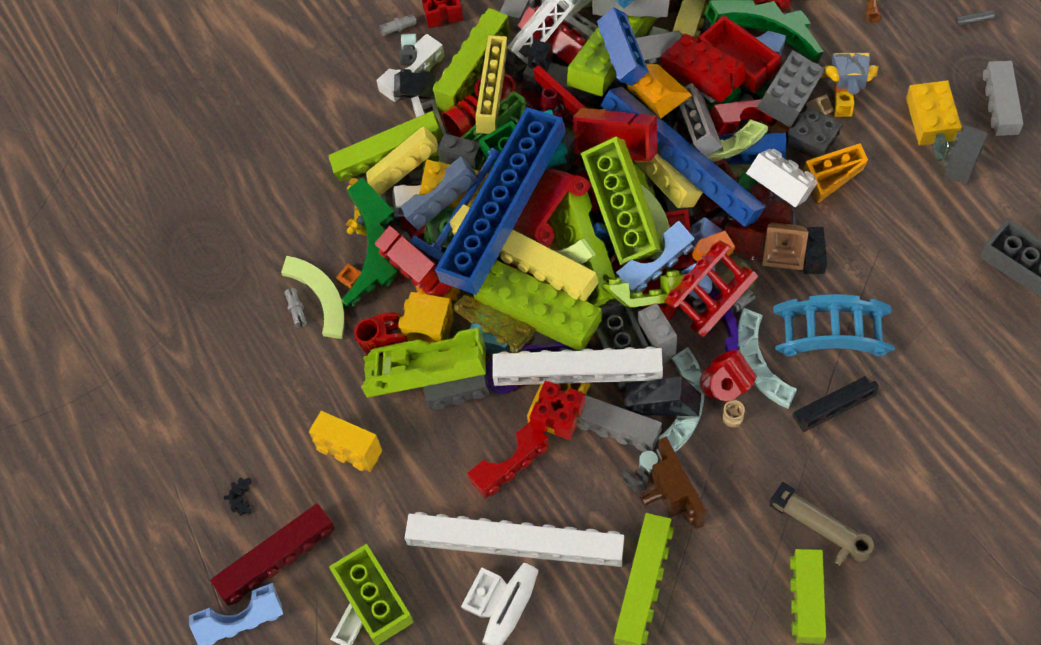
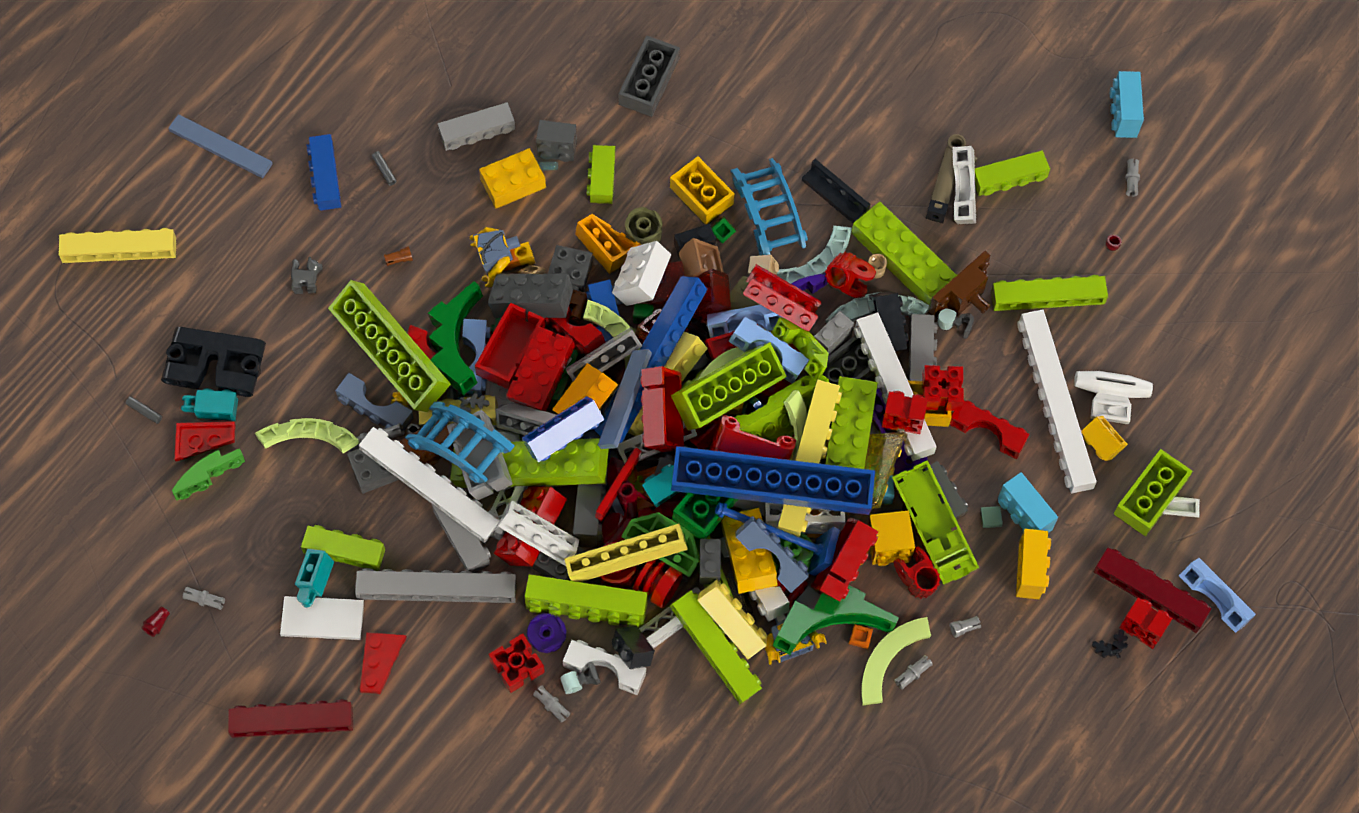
camera: 120 degrees left, 5 degrees up
(238, 527) = (1146, 622): none -> red brick
(318, 361) = (960, 627): none -> light grey pin
(404, 458) = (1026, 505): none -> medium azure brick
(416, 431) = (991, 517): none -> sand green tile
(451, 568) = (1103, 438): none -> yellow brick
(455, 31) = (548, 623): none -> dark purple plate
(532, 345) = (904, 412): none -> red brick
(540, 54) = (580, 518): black brick -> none
(636, 106) = (624, 399): none -> sand blue tile
(693, 18) = (473, 401): none -> dark grey animal
(704, 245) = (739, 307): orange leg -> none
(740, 443) = (905, 253): none -> lime brick
(763, 302) = (765, 261): none -> tan brick
(776, 525) = (965, 185): none -> white arch
(823, 283) = (723, 229): none -> green slope
(841, 207) = (643, 226): none -> olive brick
(872, 270) = (702, 190): none -> yellow brick
(918, 191) = (601, 174): none -> lime brick

